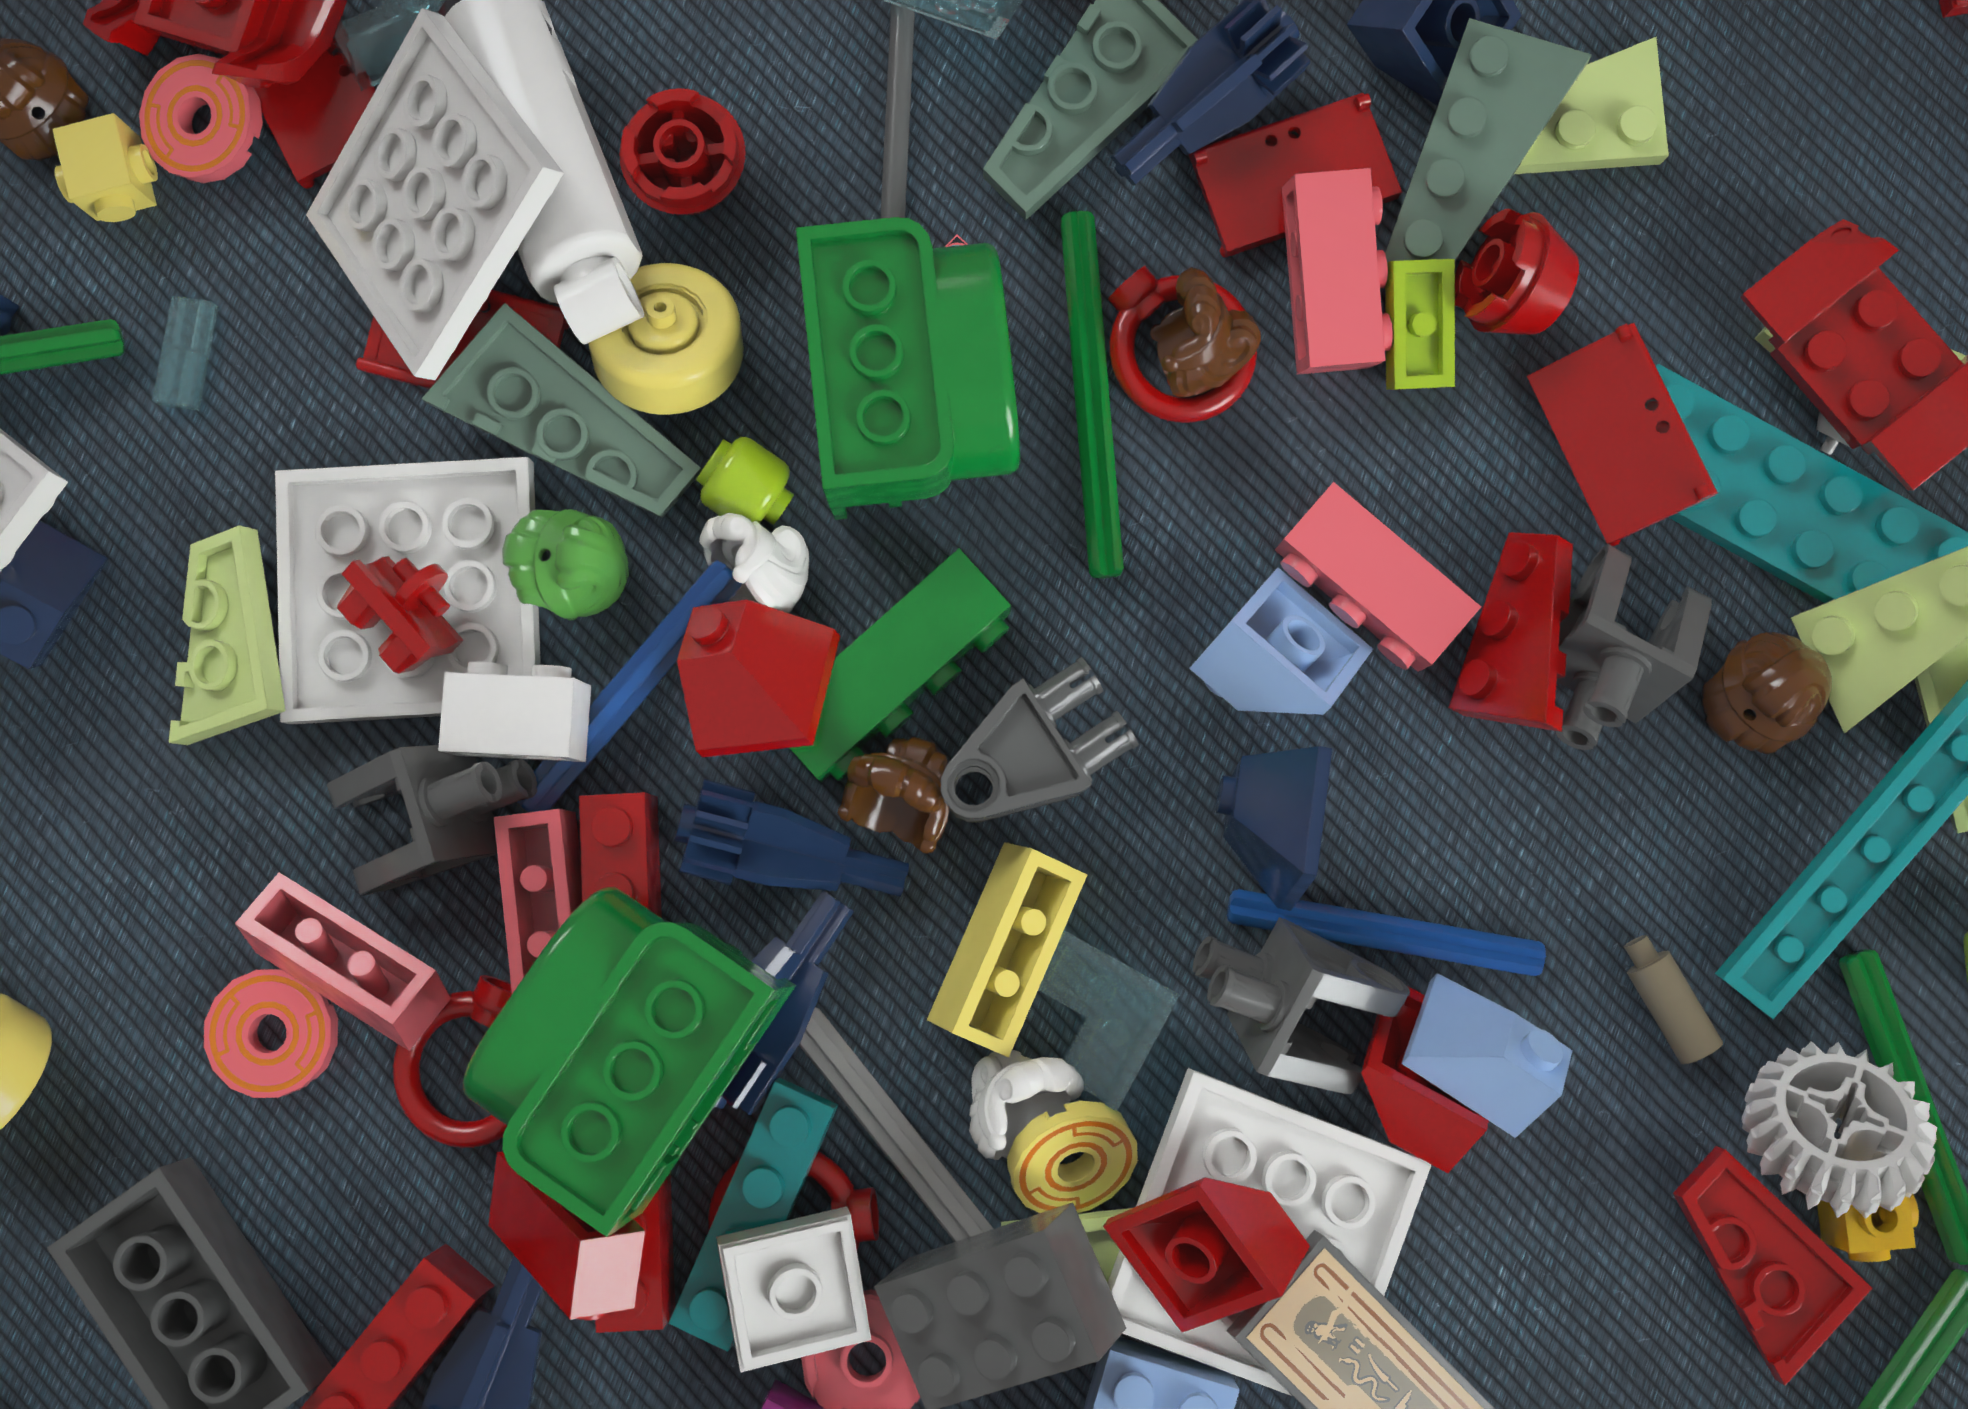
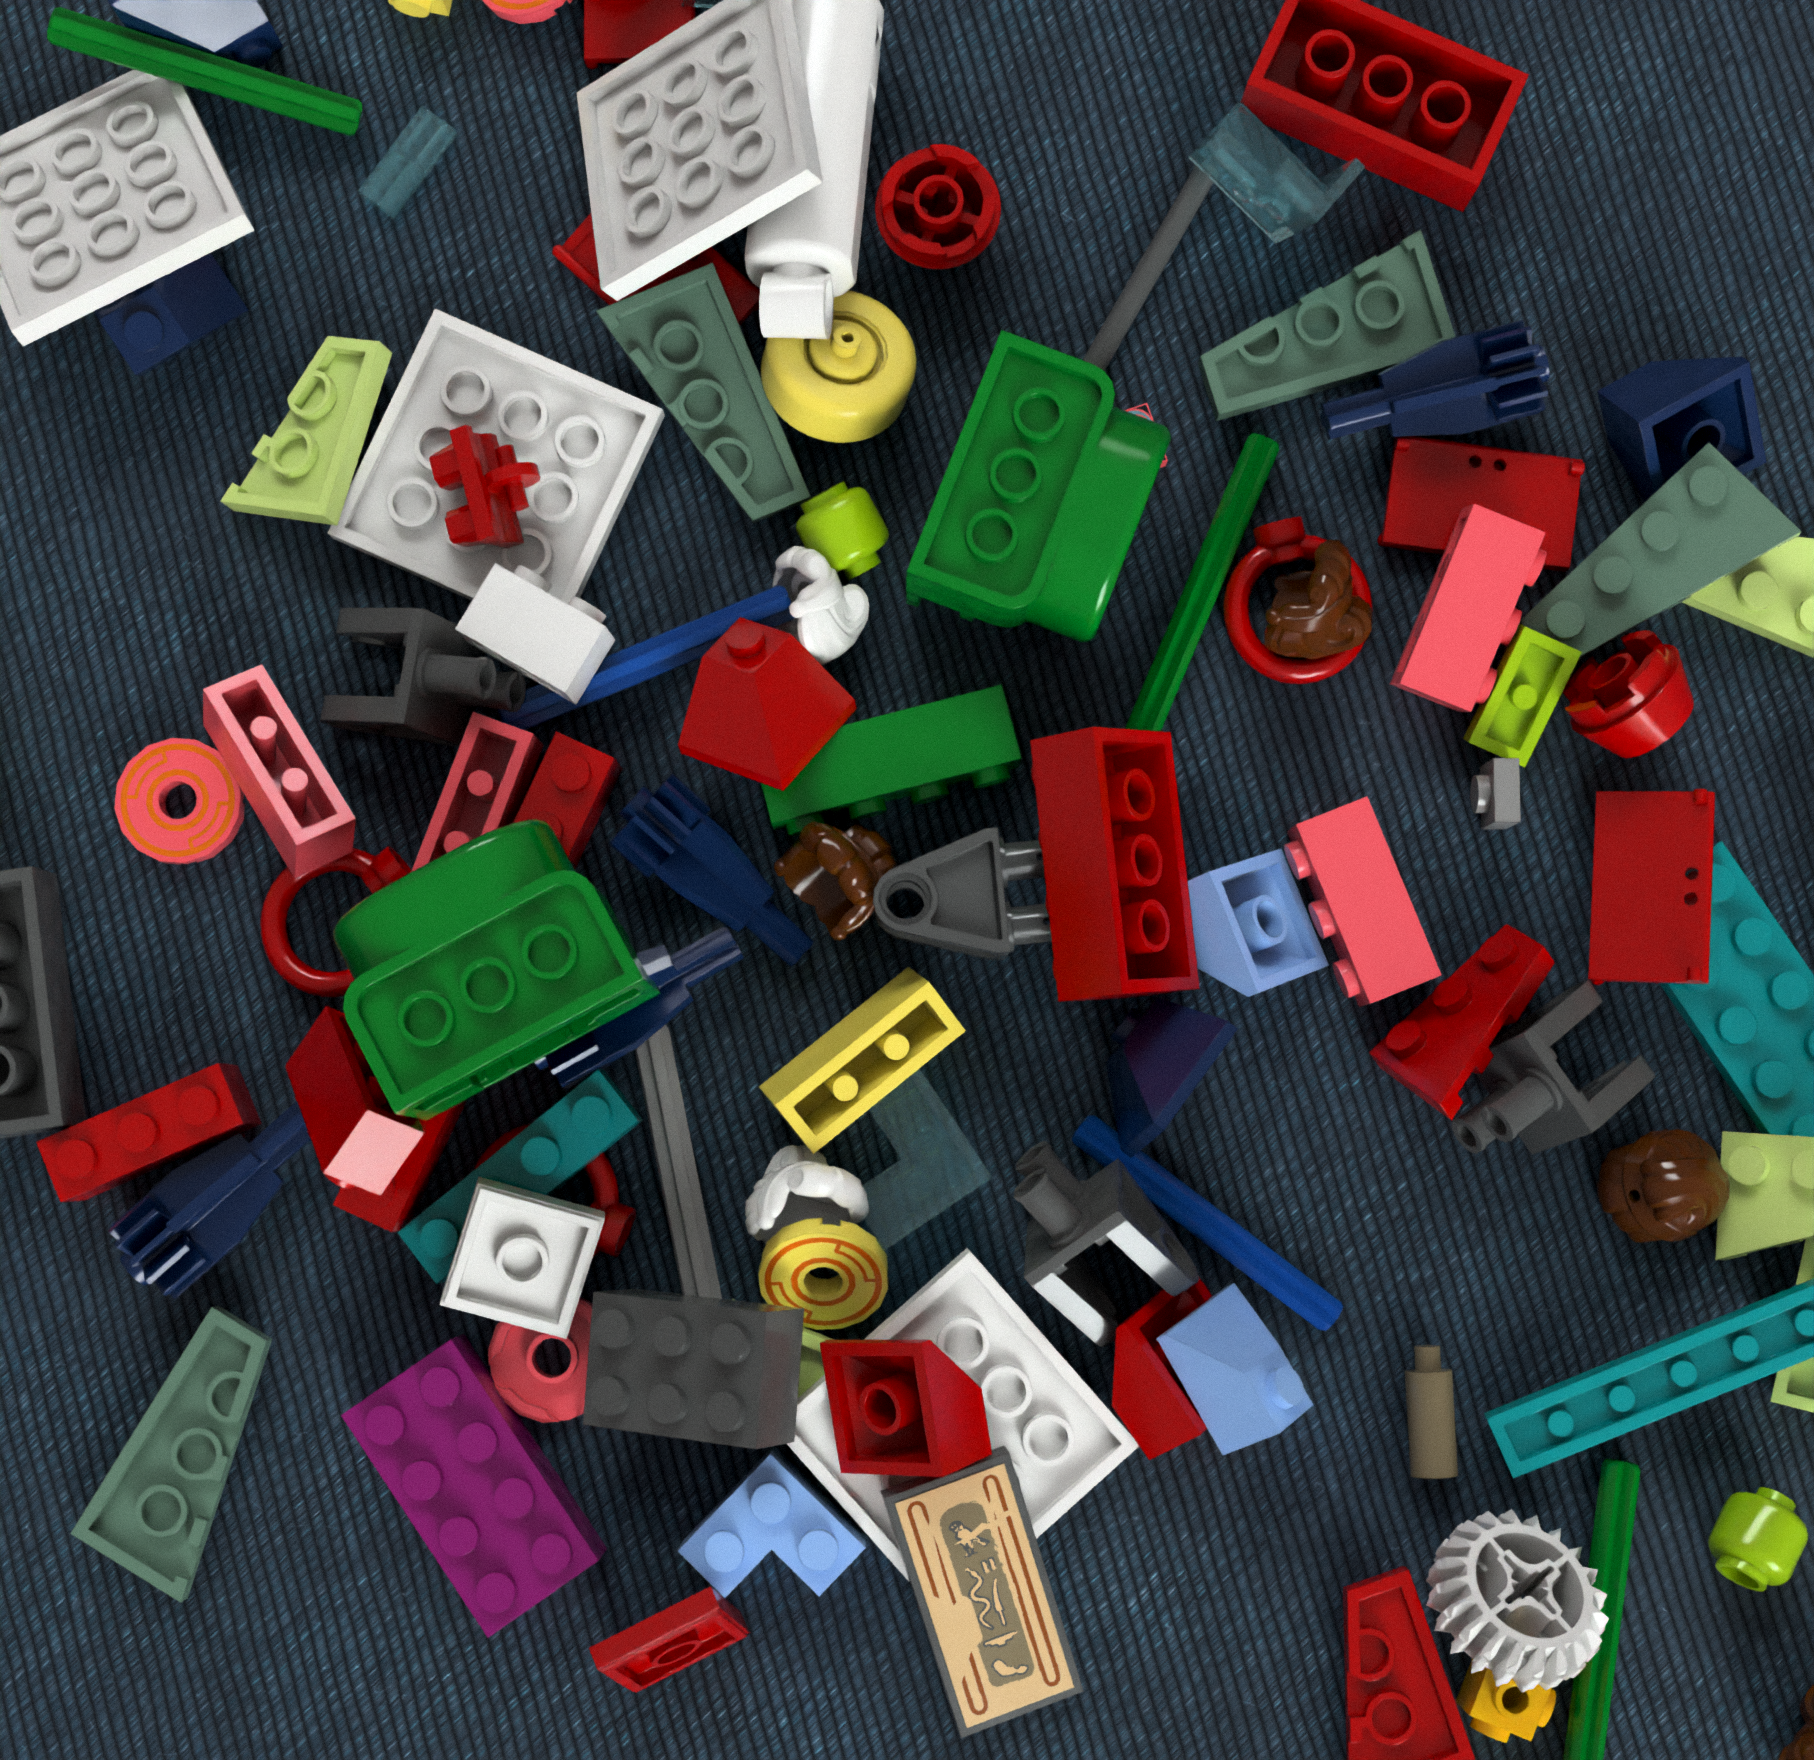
camera: 25 degrees right, 0 degrees up
(584, 566) = (660, 535): bright green hair -> none
(1143, 657) = (1114, 864): none -> red brick
(1443, 421) = (1497, 793): none -> light grey plate

